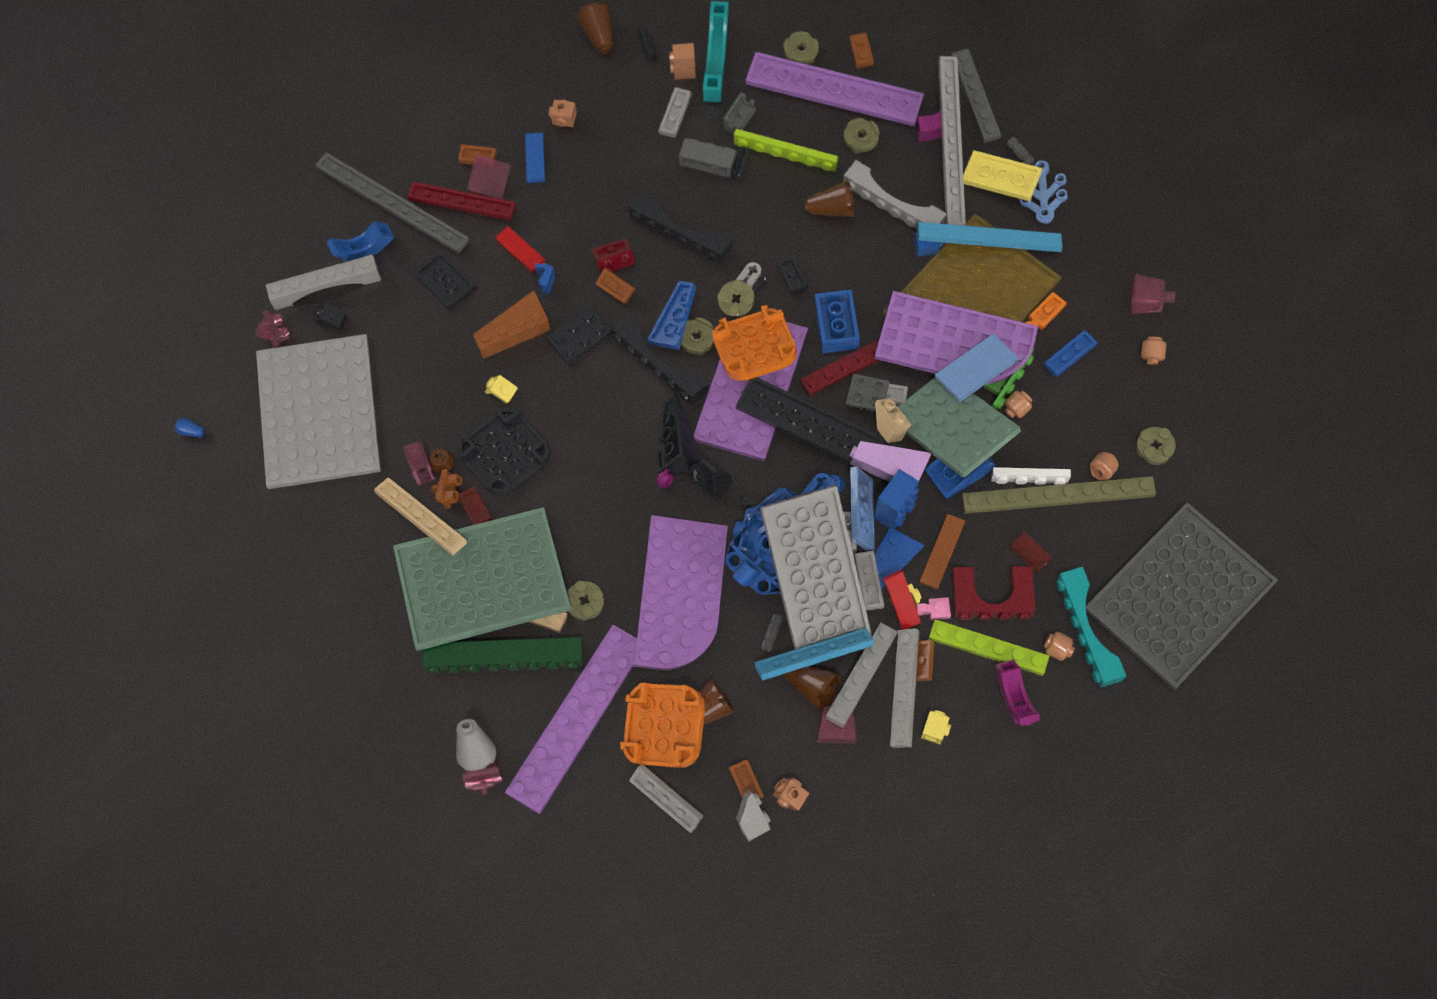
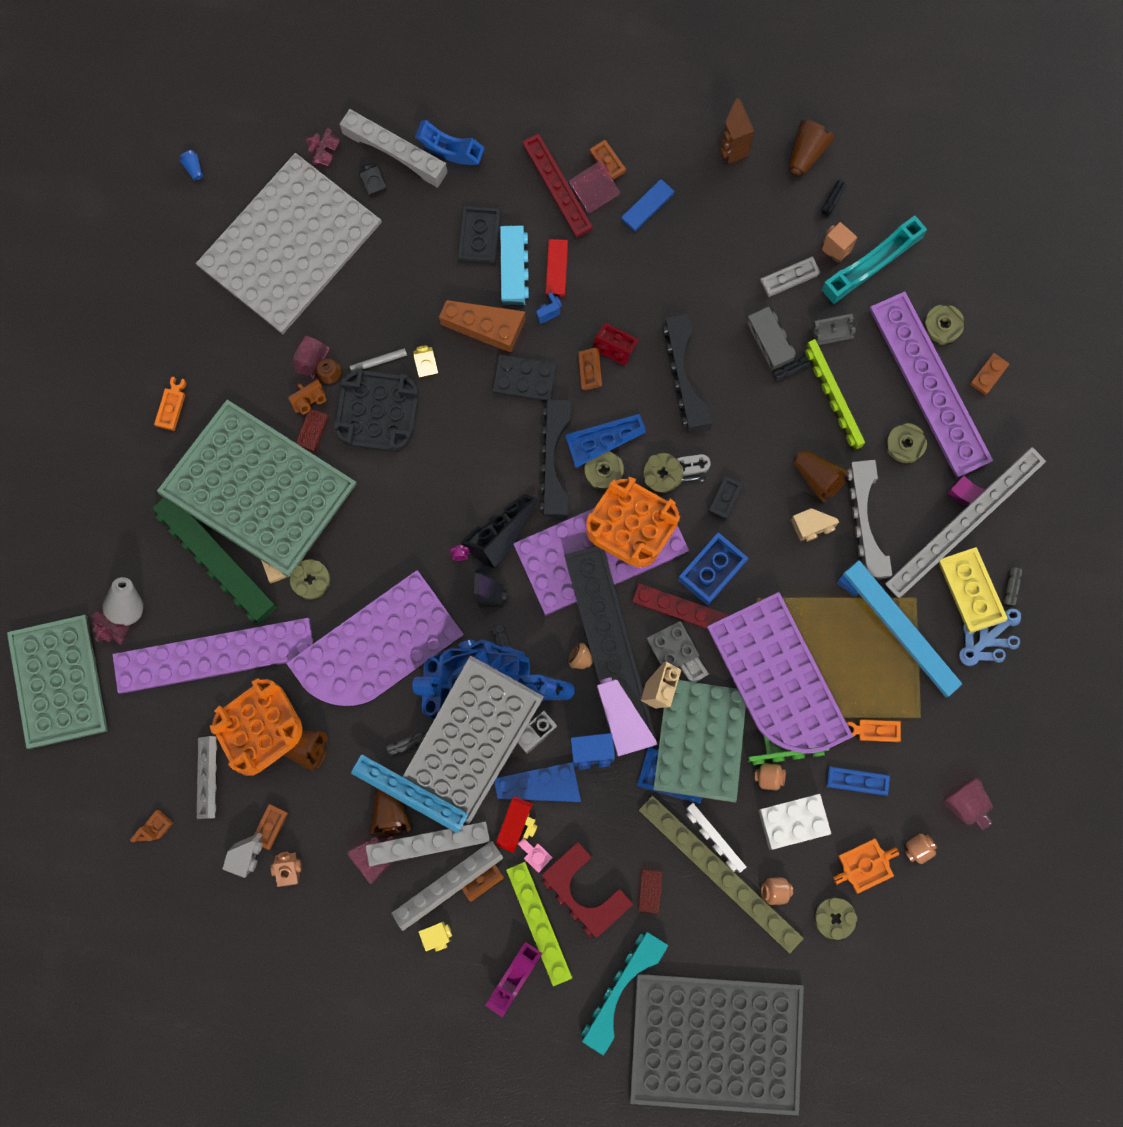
camera: 50 degrees right, 10 degrees up
(356, 592) = (170, 405): none -> orange plate
(392, 203) = (507, 135): dark grey plate -> none
(420, 516) = (266, 398): tan plate -> none
(468, 419) = (379, 360): none -> light grey bar
(486, 853) = (57, 682): none -> sand green plate
(490, 274) = (513, 265): none -> medium azure brick
(545, 57) = (737, 134): none -> reddish brown slope
(563, 113) = (704, 191): nougat brick -> none
(668, 872) = (154, 828): none -> dark orange slope
(817, 459) = (580, 657): none -> medium nougat cone
(862, 235) = (812, 522): none -> tan slope
(862, 509) = (564, 727): medium blue tile -> none
(869, 580) = (510, 784): light grey tile -> none
(942, 552) = (588, 820): dark orange tile -> none
(976, 97) = (1034, 504): dark grey plate -> none
(976, 367) = (767, 718): medium blue tile -> none
(1059, 646) = (585, 980): nougat head -> none
(1064, 414) = (794, 822): none -> white brick
(1135, 395) = (866, 866): none -> orange plate

